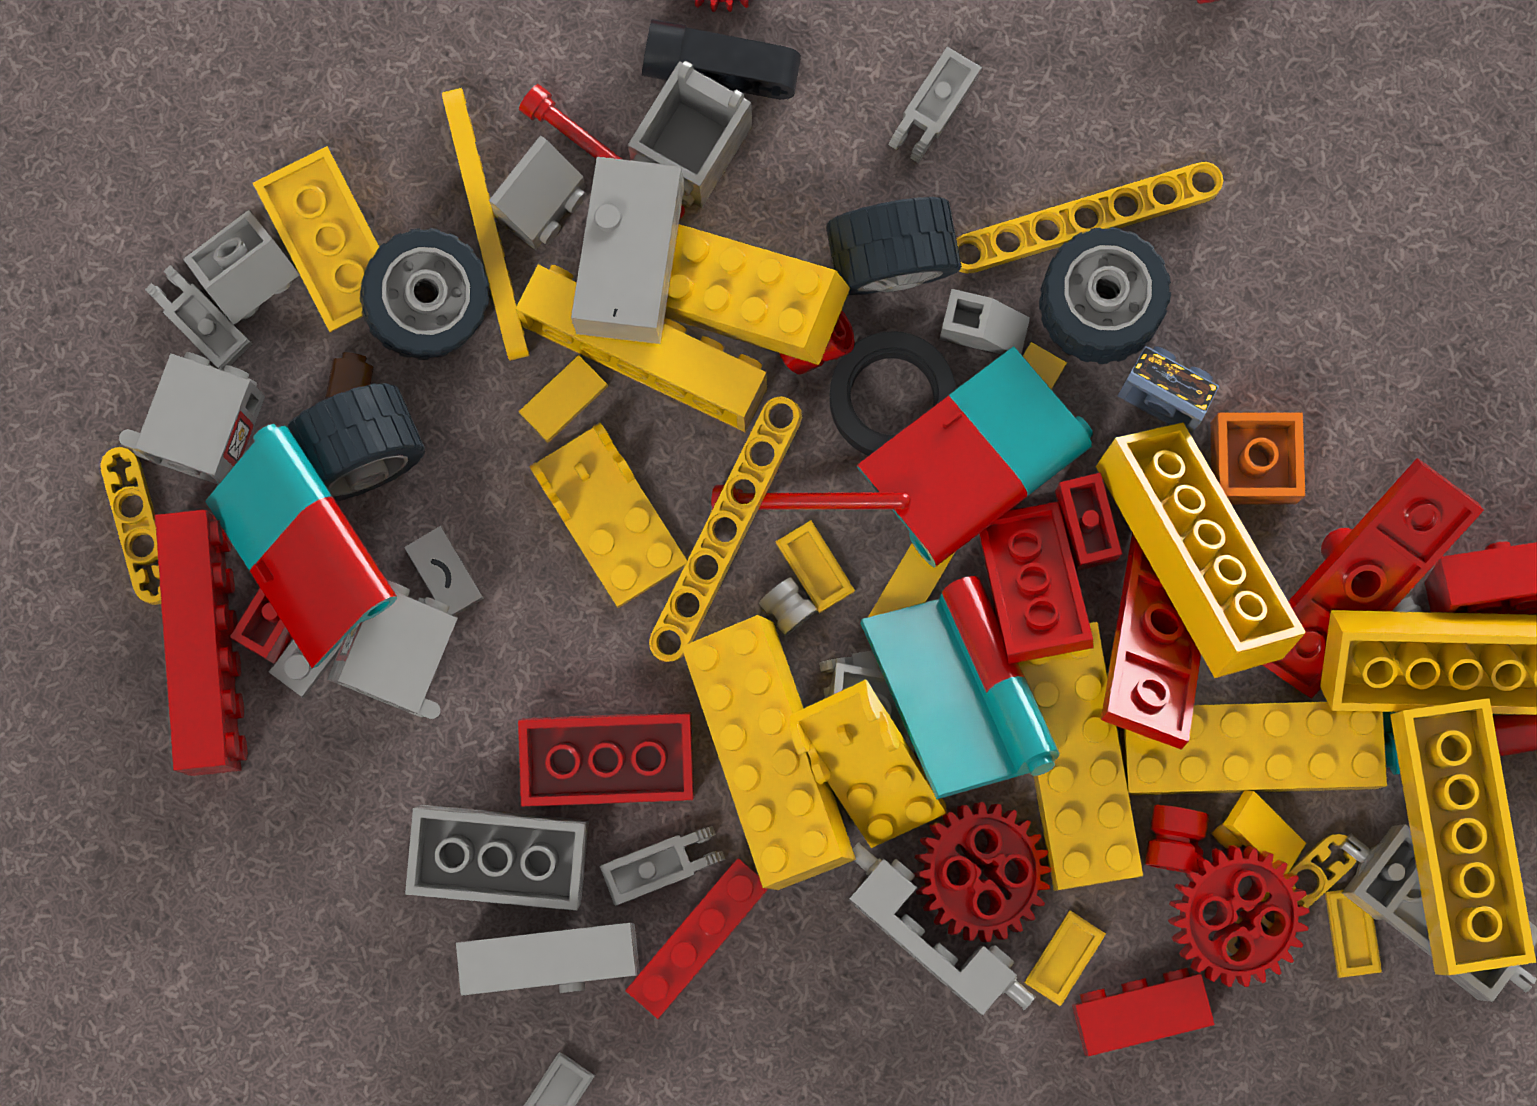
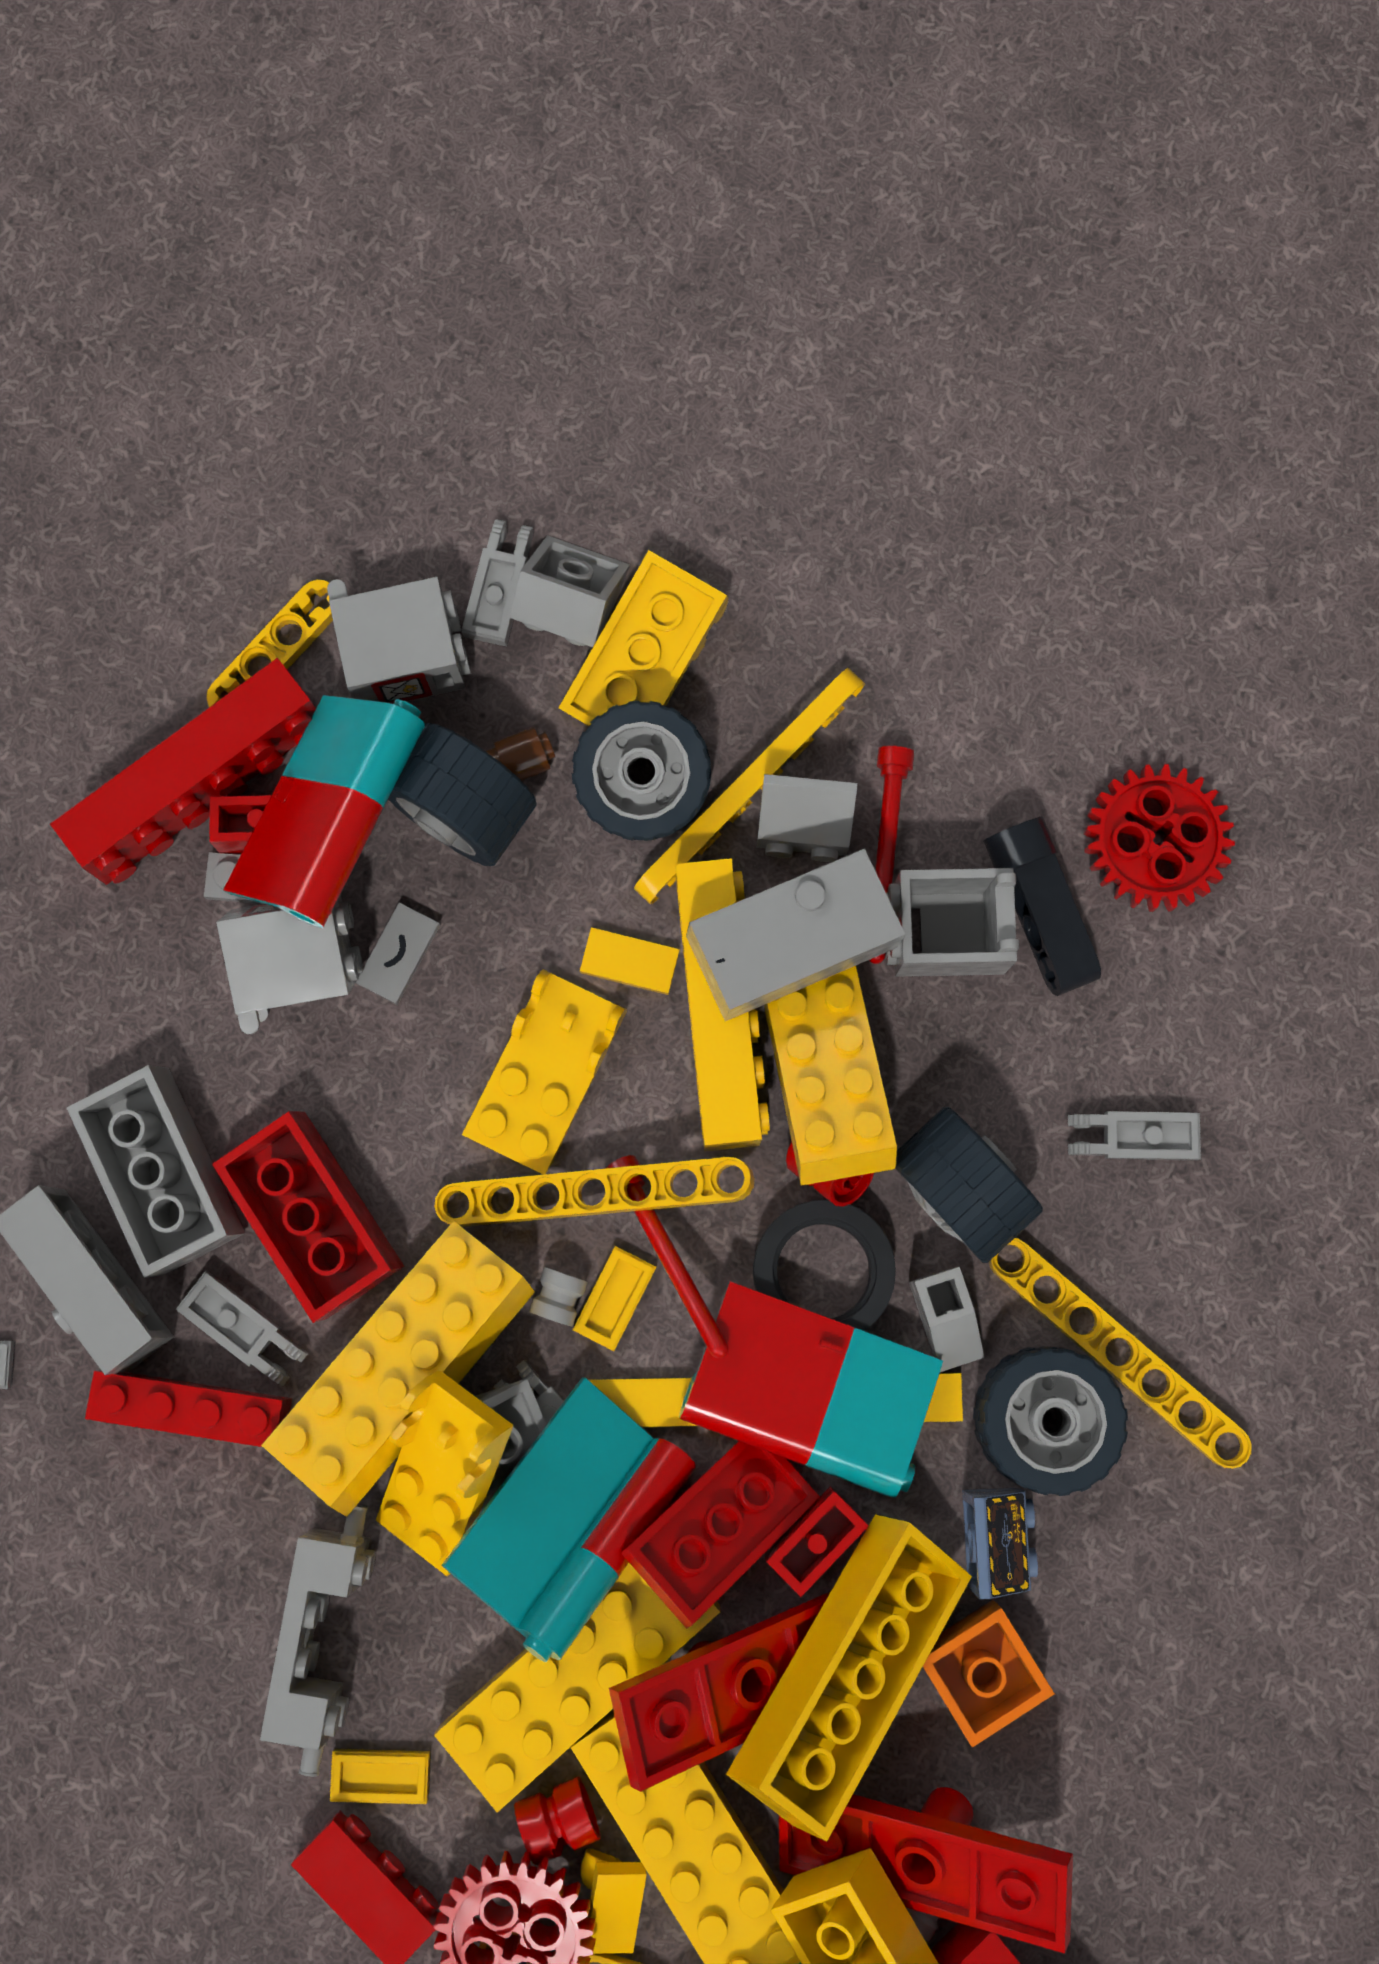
camera: 55 degrees right, 0 degrees up
(959, 901) = (368, 1639): red gear -> none

